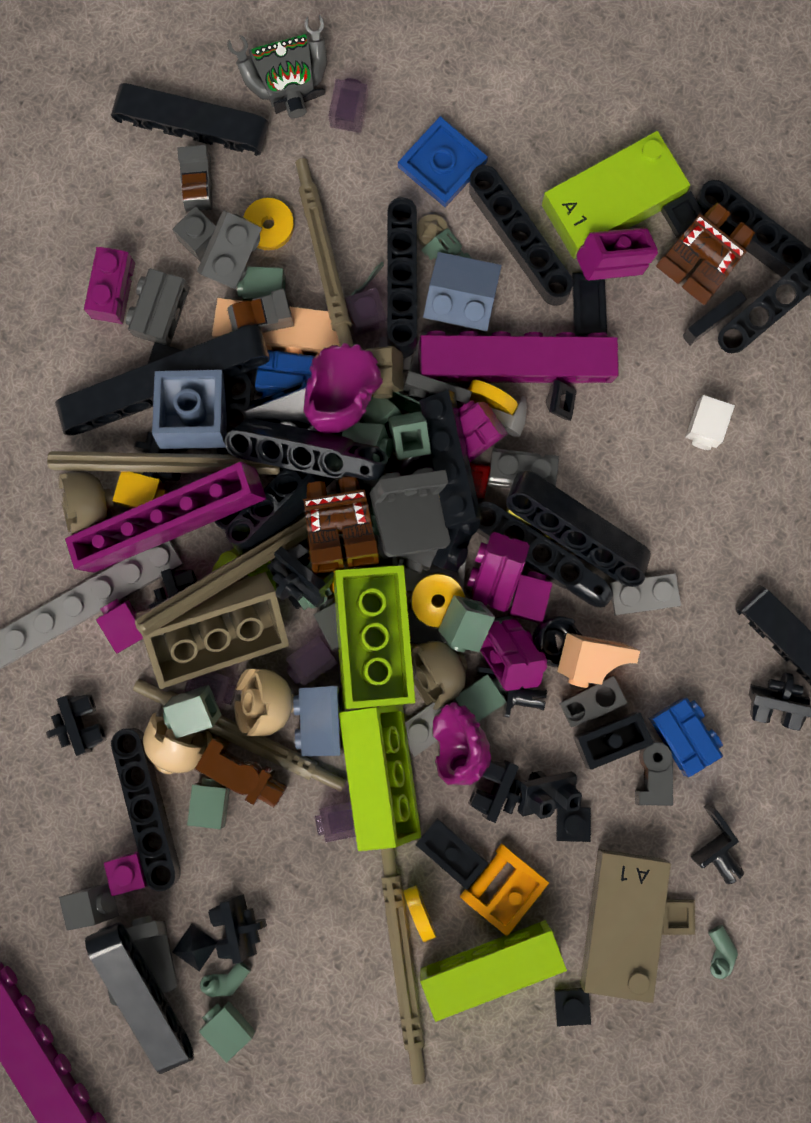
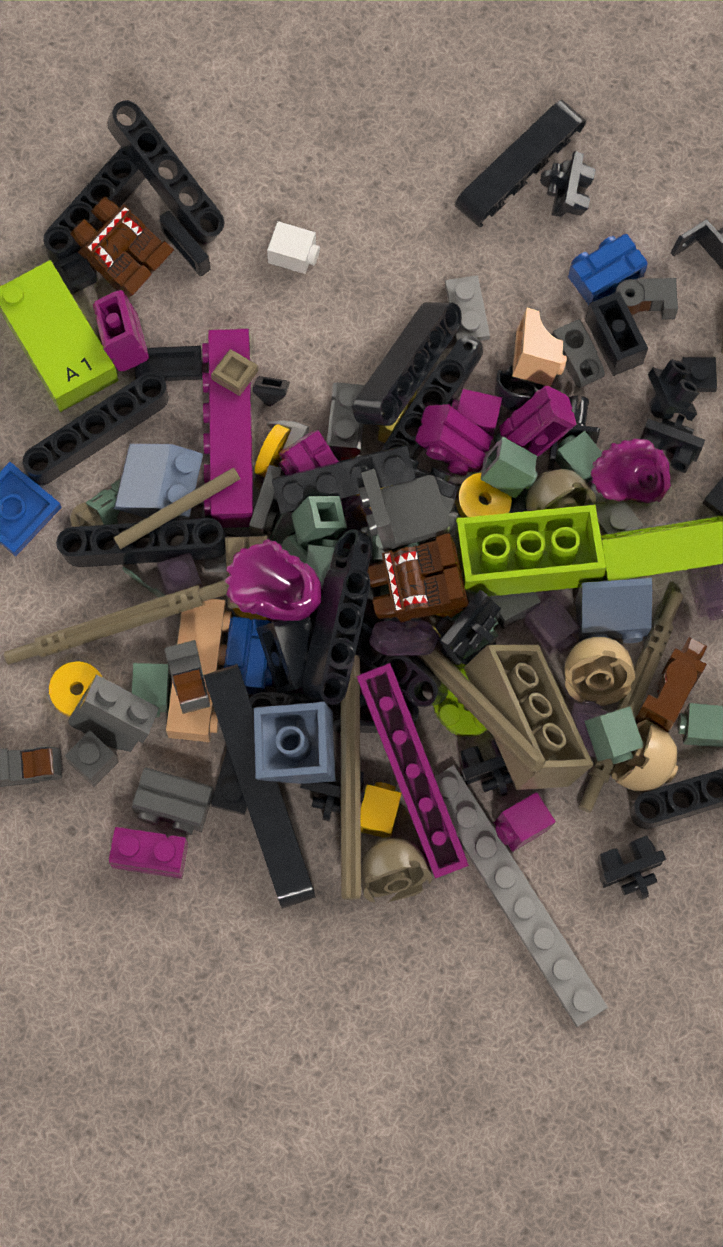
camera: 100 degrees left, 10 degrees down
(289, 516) = (404, 638): none -> clear purple plate
(427, 303) = (176, 508): none -> dark tan bar
(569, 360) = (234, 372): none -> dark tan tile

